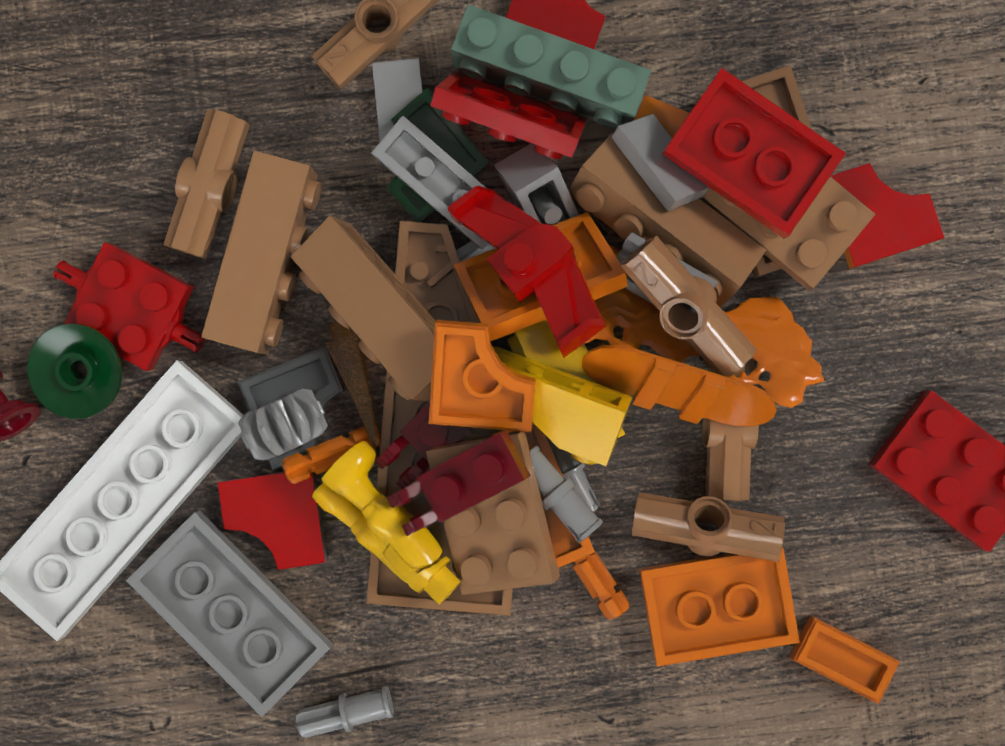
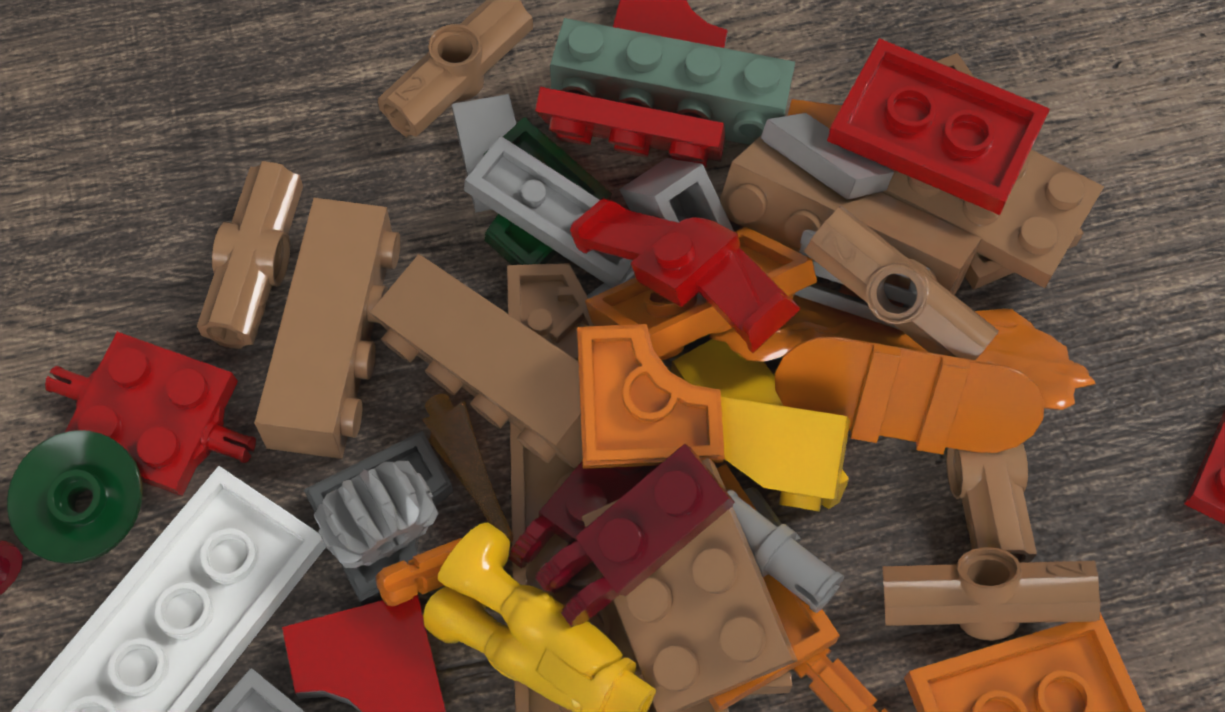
camera: 10 degrees left, 25 degrees down
(899, 218) = (1128, 212): red tile -> none

